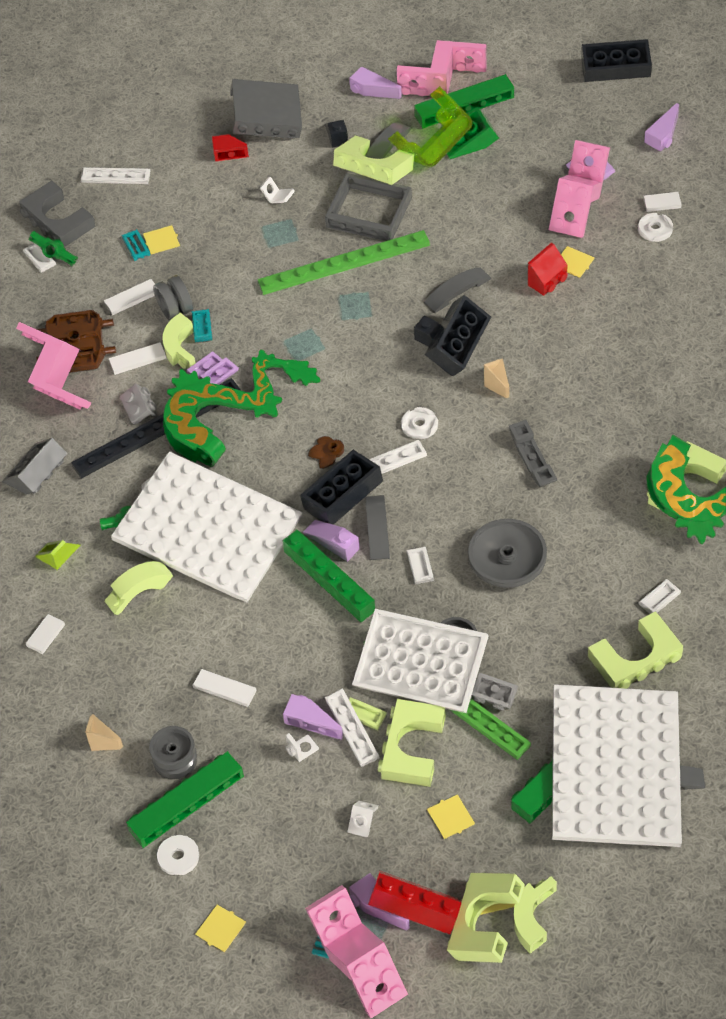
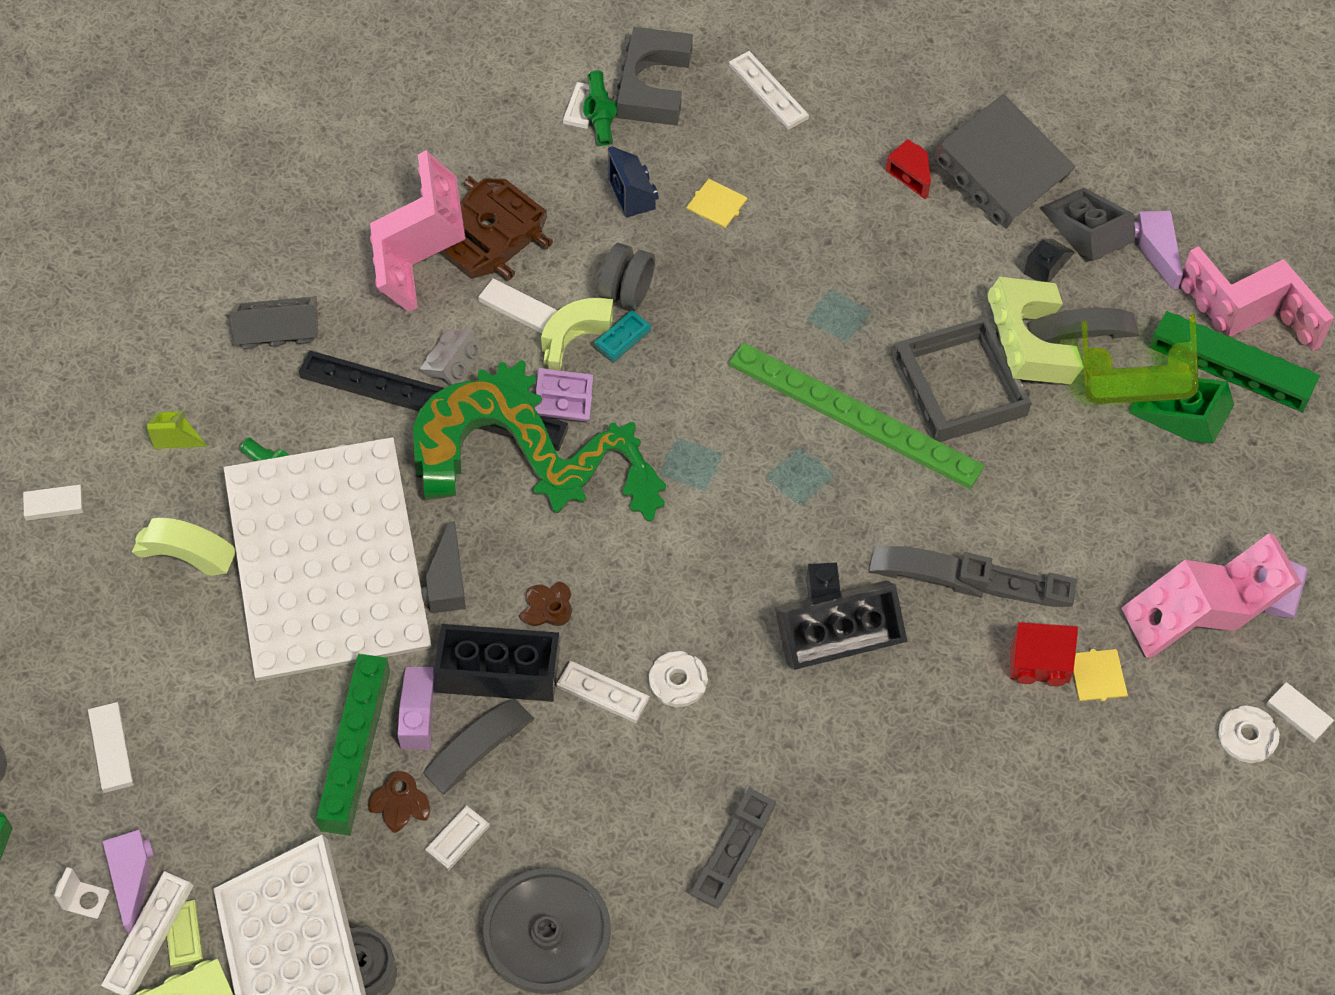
camera: 45 degrees right, 5 degrees up
(114, 265) = (630, 183): none -> dark blue slope
(130, 297) = (601, 233): white tile -> none
(146, 252) = (667, 195): teal tile -> none
(269, 481) = (444, 576): none -> dark grey slope
(276, 195) = (891, 271): white bracket -> none
(333, 102) = (1091, 223): none -> dark grey slope
(379, 579) = (400, 806): none -> reddish brown plate
(492, 264) = (1008, 583): none -> dark grey slope
(496, 378) = (821, 716): tan slope -> none

